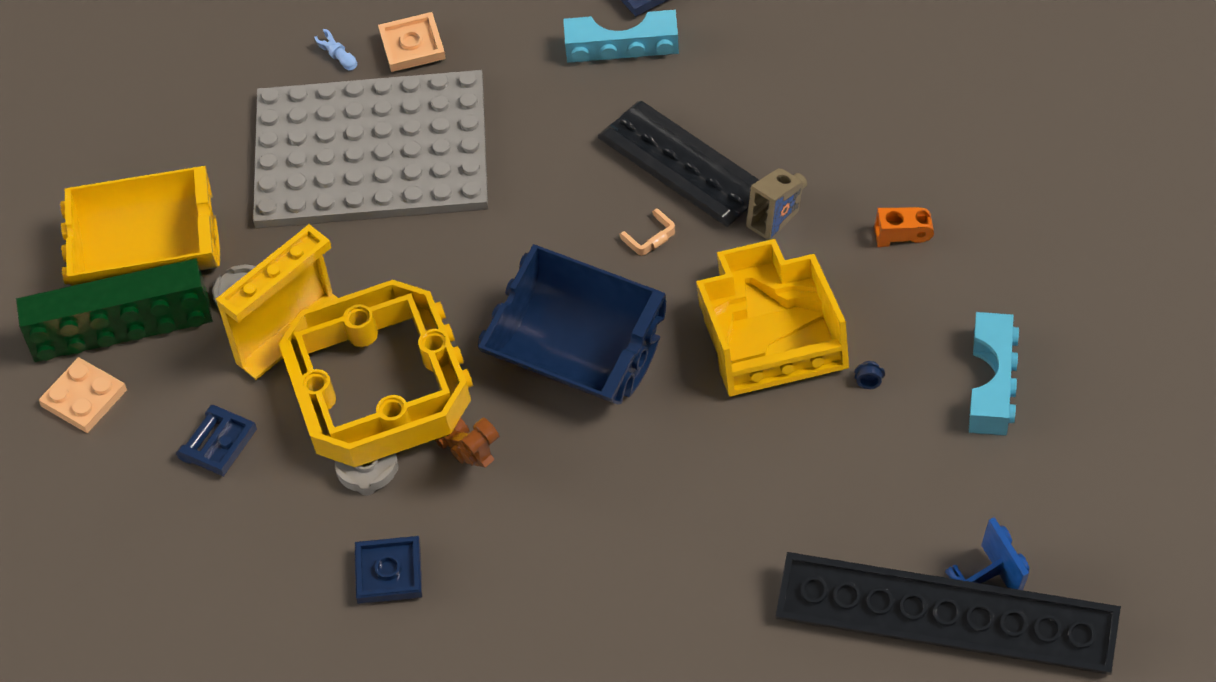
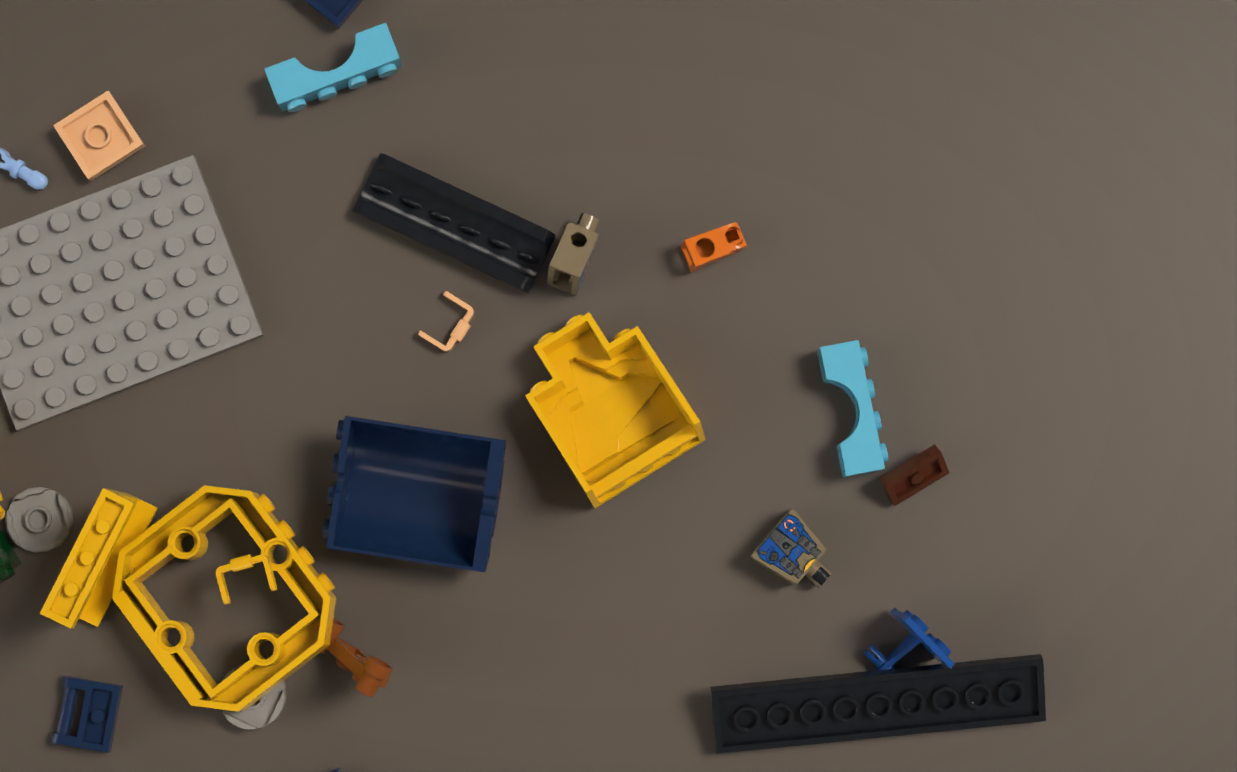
camera: 30 degrees left, 30 degrees up
(400, 337) = (241, 563): none -> yellow piece
(869, 375) = (728, 442): dark blue plate -> none
(900, 469) = (792, 551): none -> torso
(1037, 438) = (914, 475): none -> copper plate

